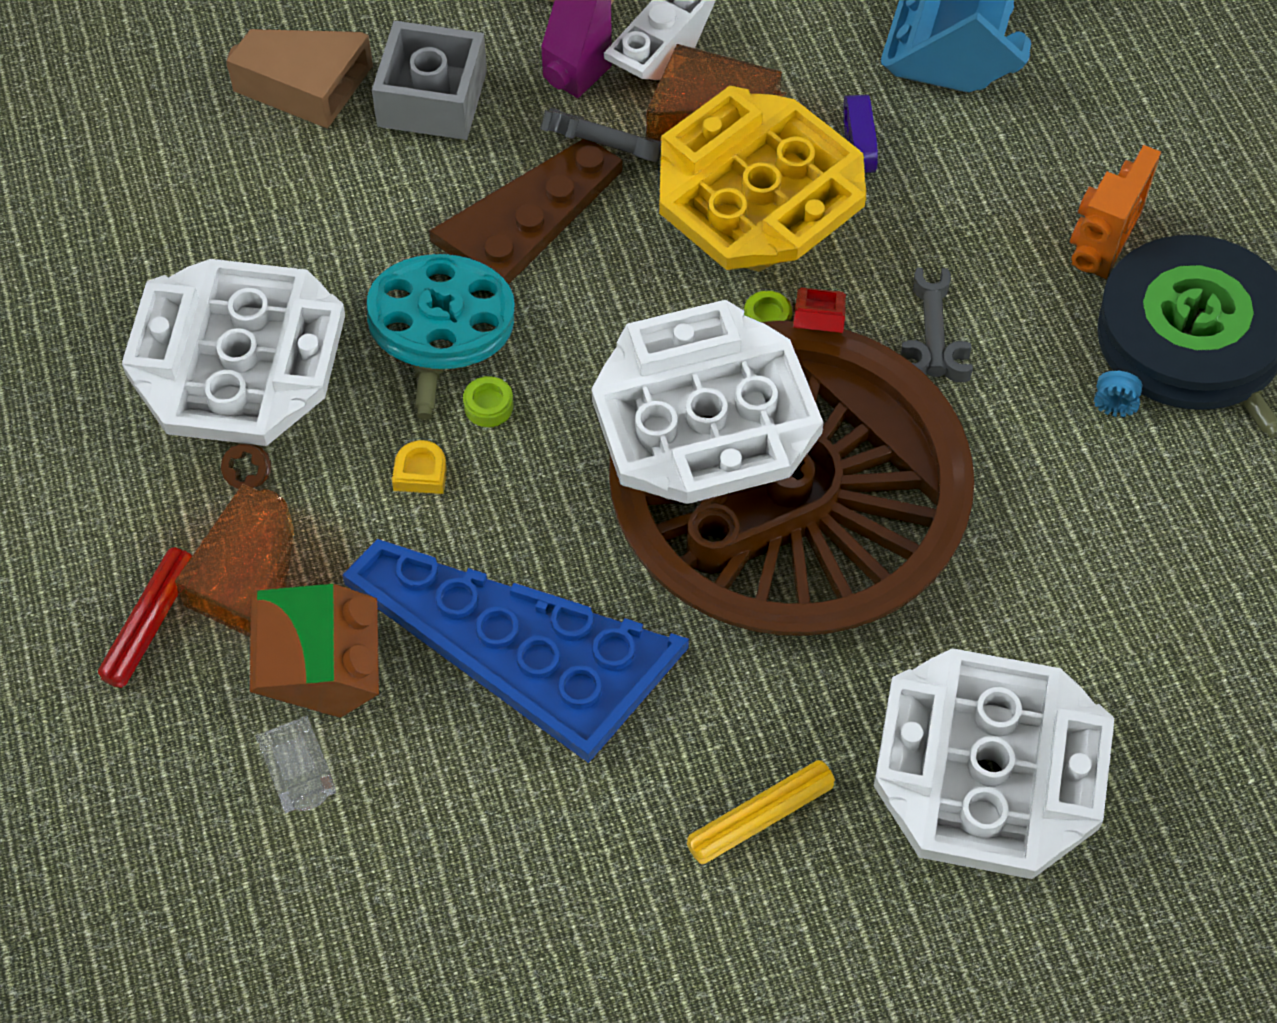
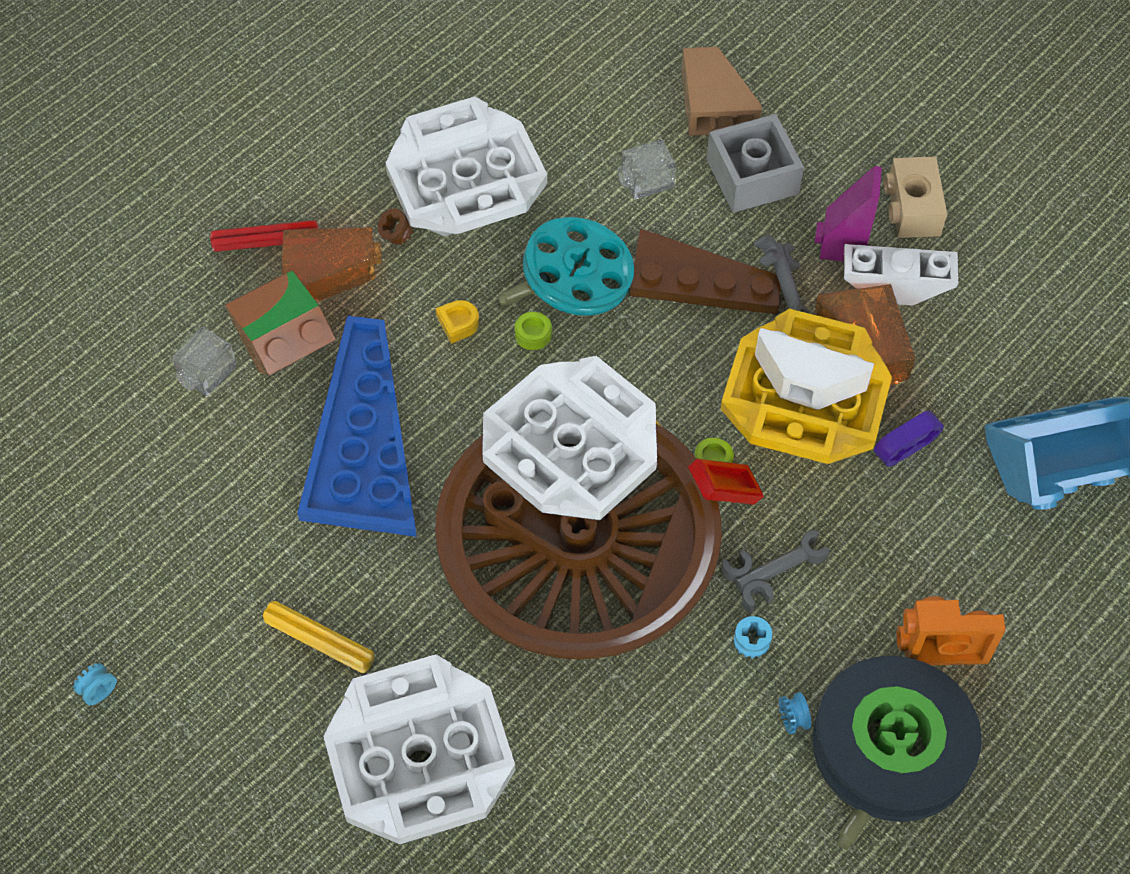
camera: 60 degrees right, 0 degrees up
(356, 182) = (647, 169): none -> clear brick
(749, 161) = (810, 371): none -> white slope
(1012, 399) = (742, 642): none -> medium azure bush

